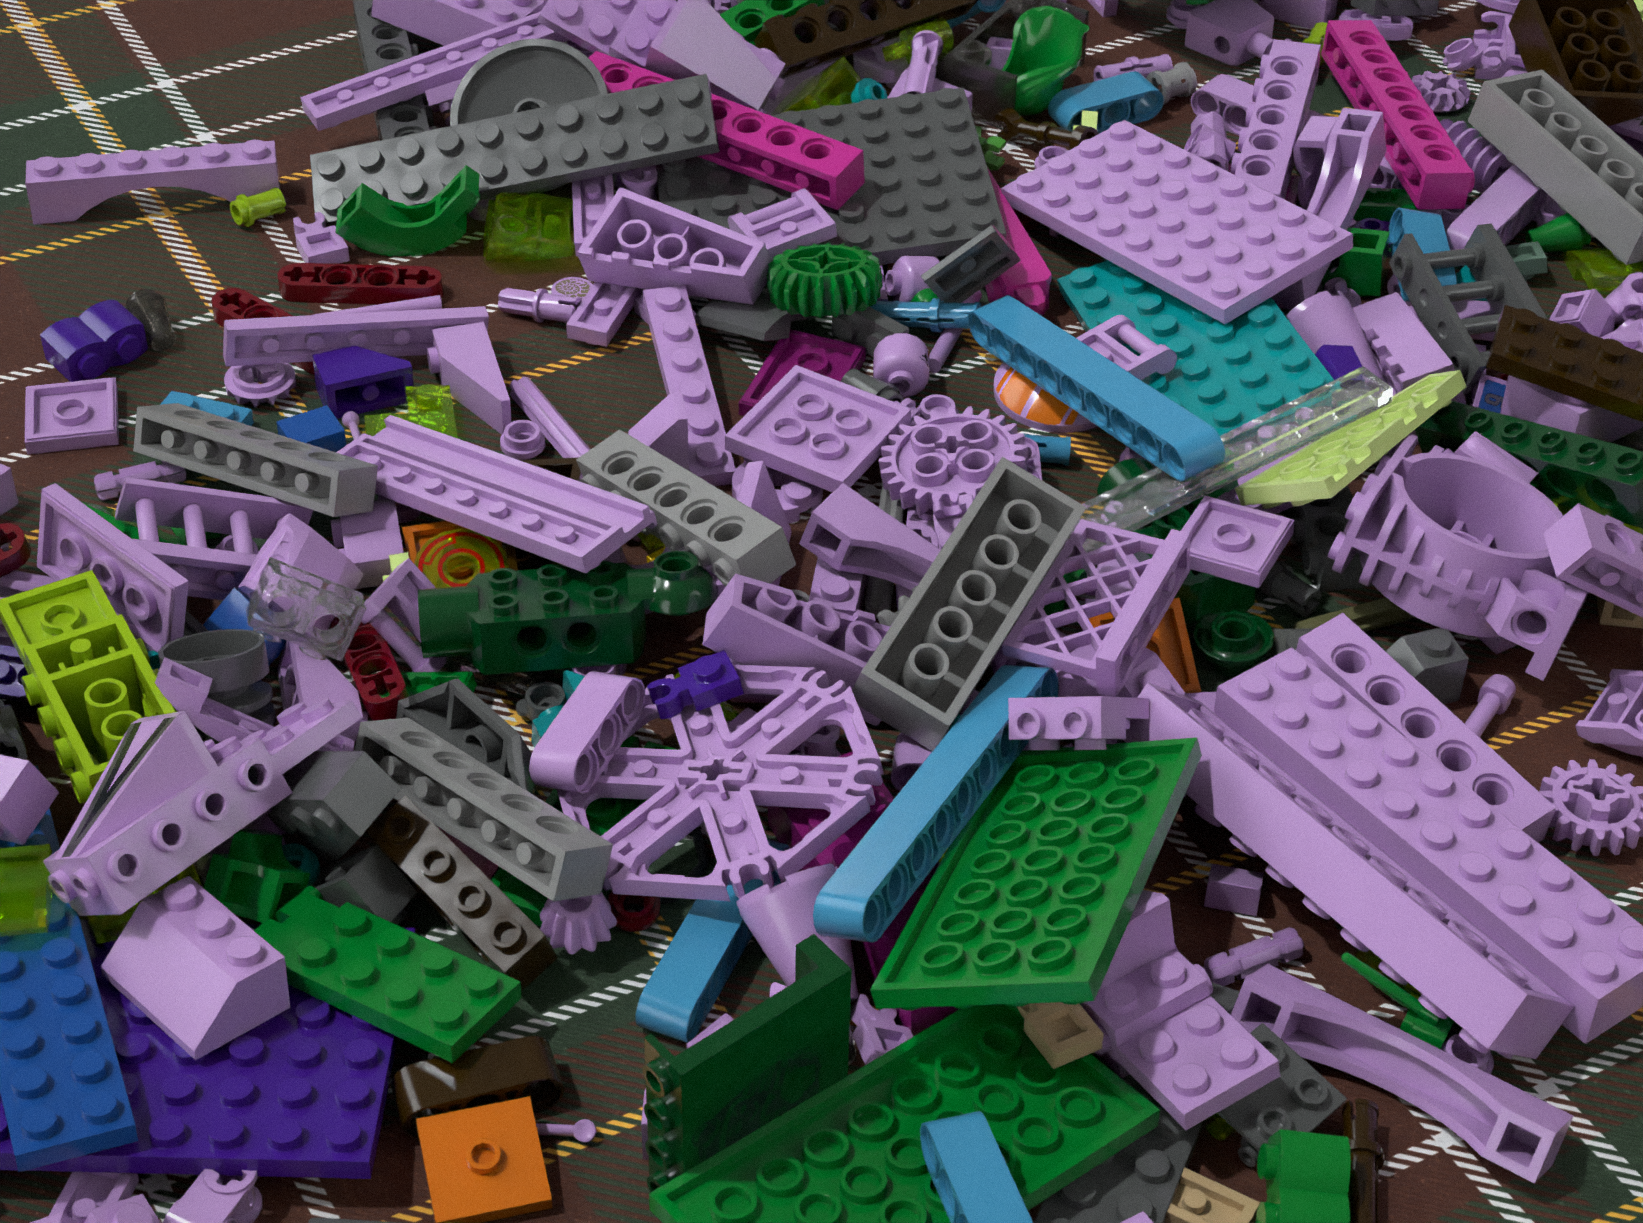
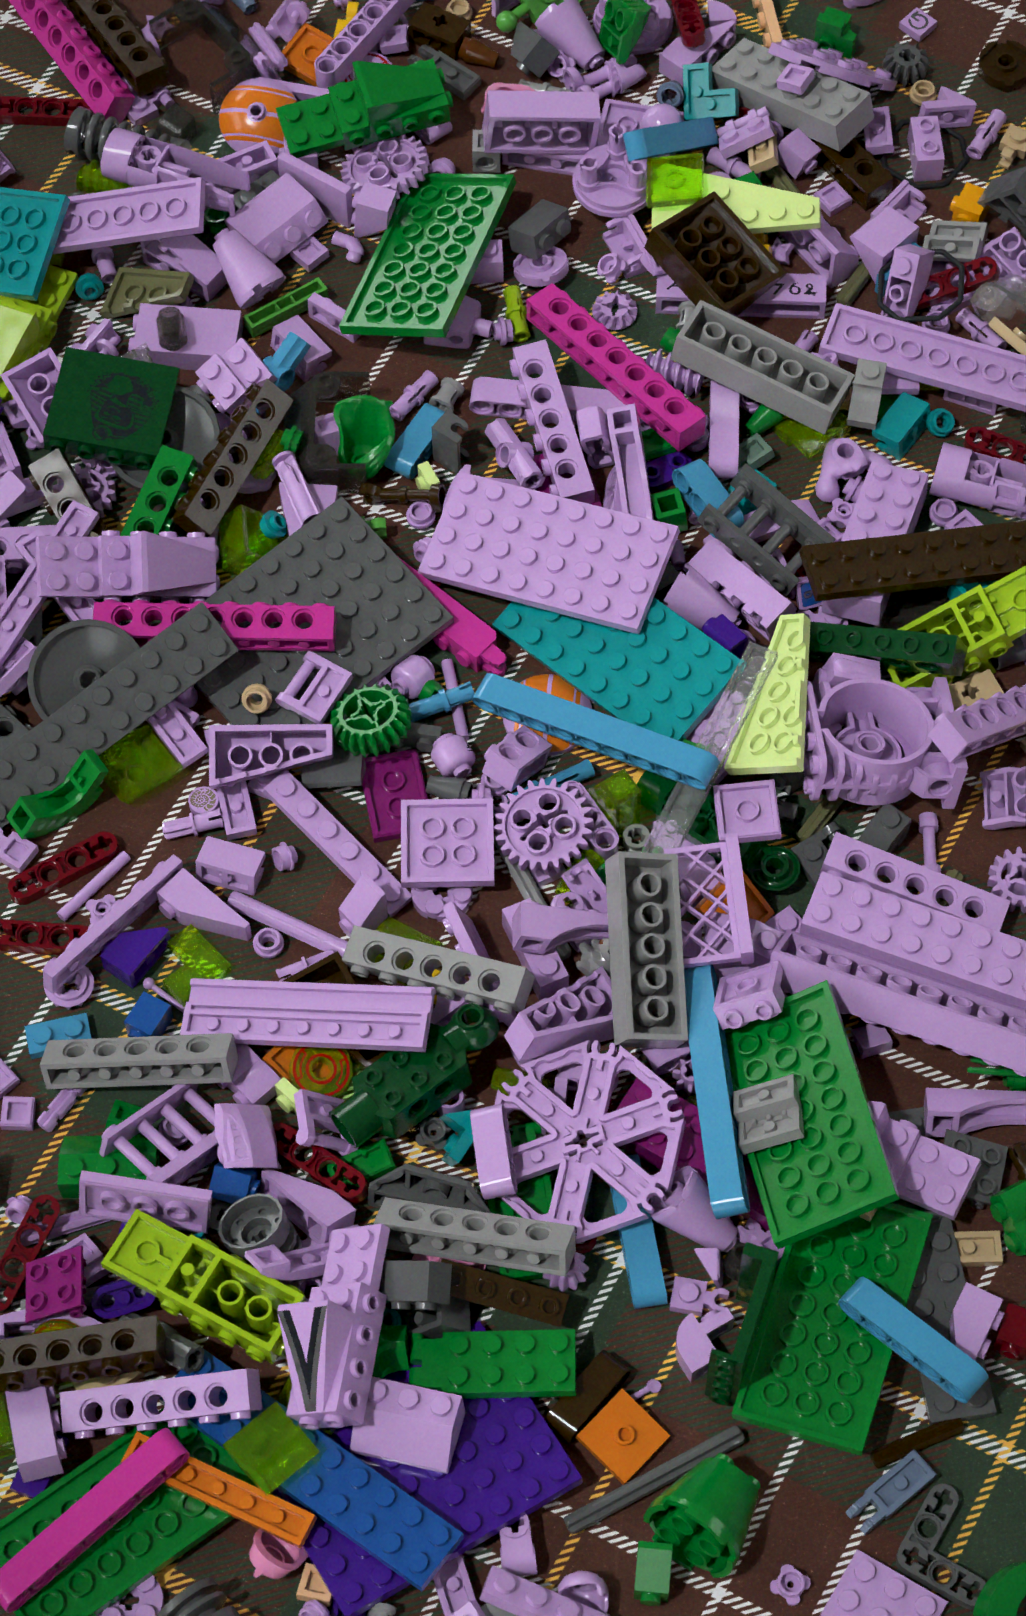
camera: 30 degrees left, 20 degrees up
(81, 465) = (18, 1113): none -> lavender tile
(312, 599) = (280, 1163): clear brick -> none
(544, 353) = (230, 865): none -> lavender hinge
(617, 374) = (284, 857): none -> lavender plate
(700, 683) = (532, 1082): dark purple plate -> none
(703, 200) = (256, 706): none -> tan plate
(951, 27) = (291, 439): none -> green plate
(971, 266) = (454, 662): dark grey slope -> none
(979, 384) = (516, 758): none -> lavender brick
(990, 846) = (768, 1114): none -> light grey slope
(1071, 458) = (618, 800): none -> clear neon green slope
(1108, 341) = (584, 693): lavender plate -> none
(1137, 93) = (447, 441): none -> dark grey hinge
(1254, 955) = (908, 1080): lavender axle -> none
(1584, 310) = (818, 492): lavender slope -> none

